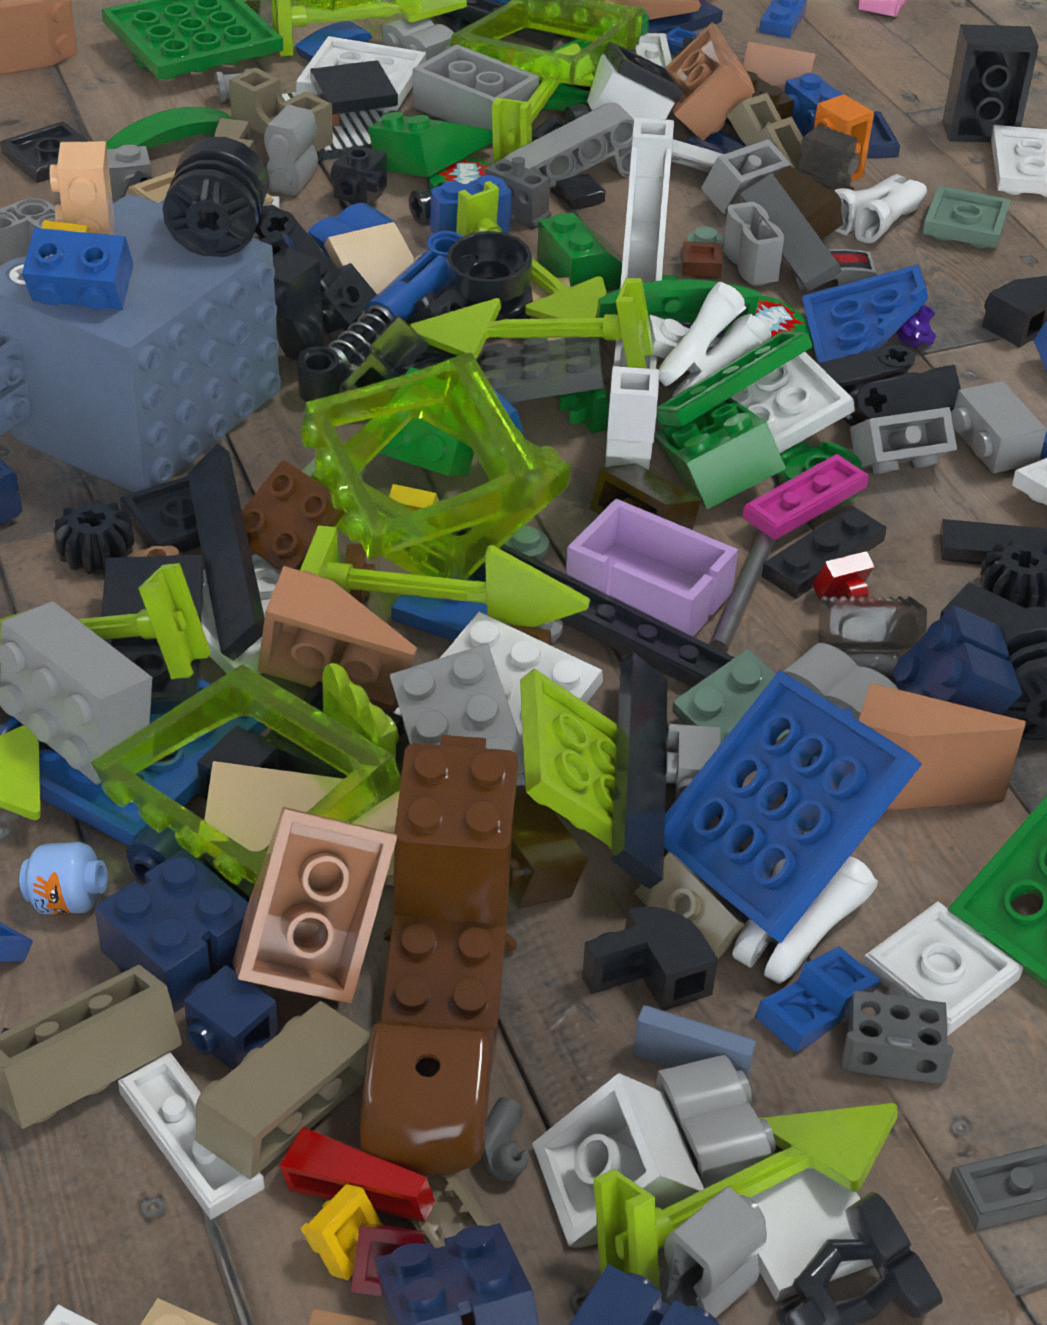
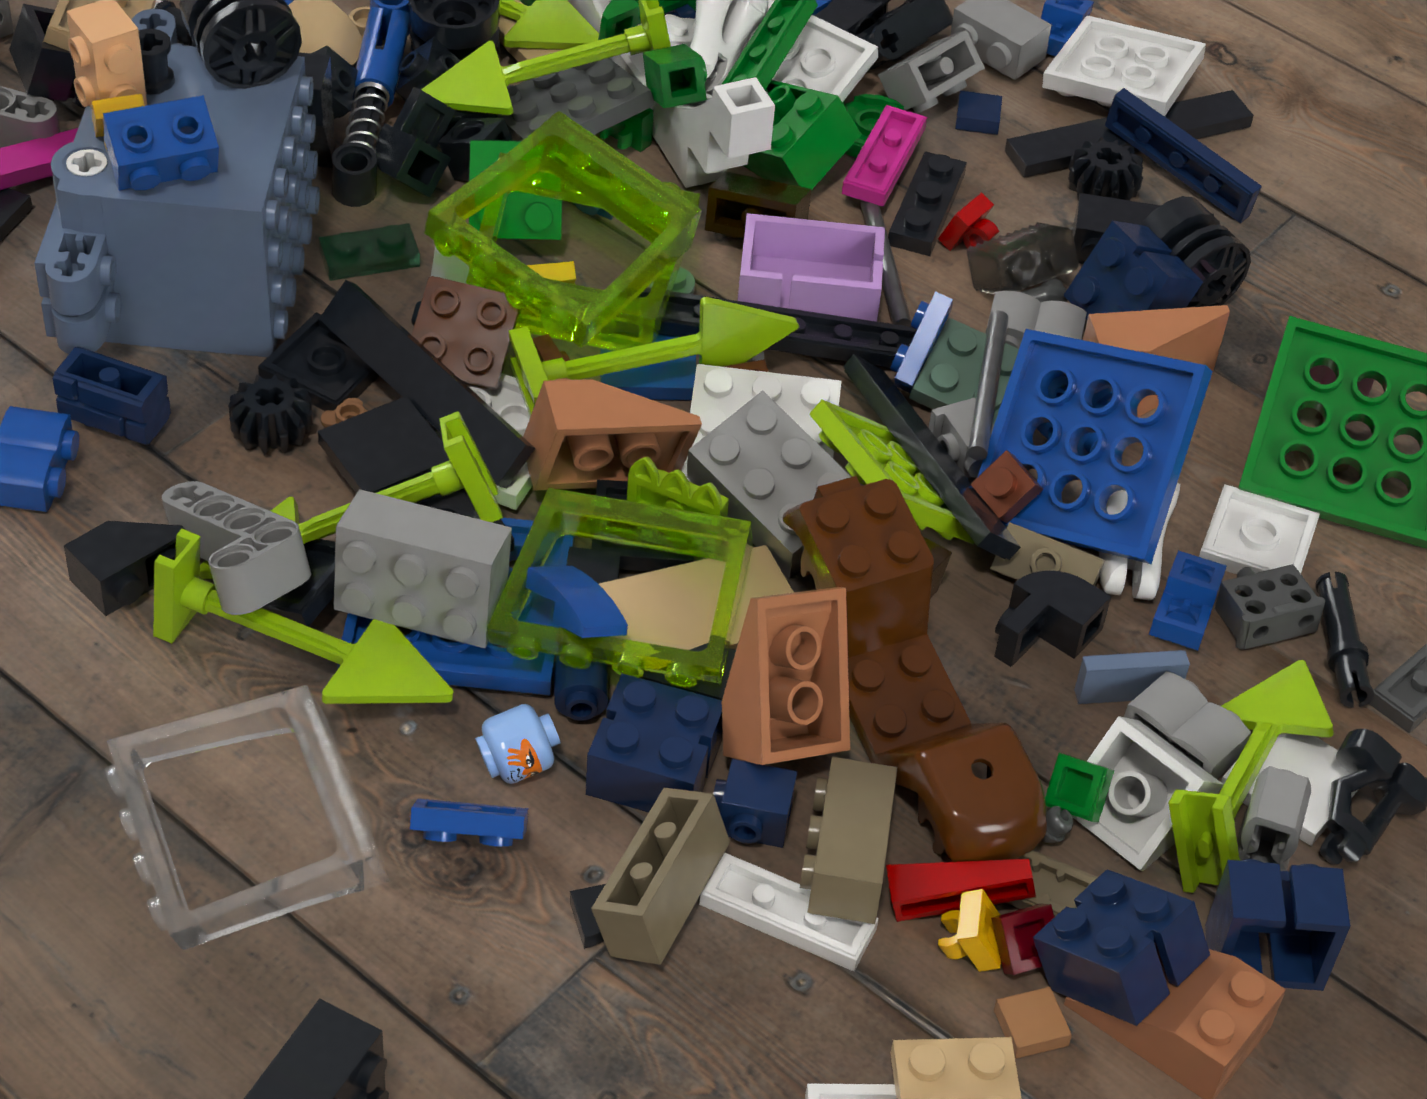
camera: 30 degrees left, 5 degrees up
(132, 210) = (154, 50): none -> black bush
(185, 769) = (579, 601): none -> blue slope
(275, 439) = (369, 251): none -> clear green plate
(551, 1133) = (1079, 787): none -> green tile
(626, 353) = (675, 75): none -> green brick
(688, 818) = (1006, 486): none -> copper plate
(704, 749) = (988, 385): none -> flat silver bar
(716, 647) = (929, 323): none -> plate
(935, 490) = (978, 112): none -> dark blue tile
(951, 1118) = (1347, 654): none -> black pin

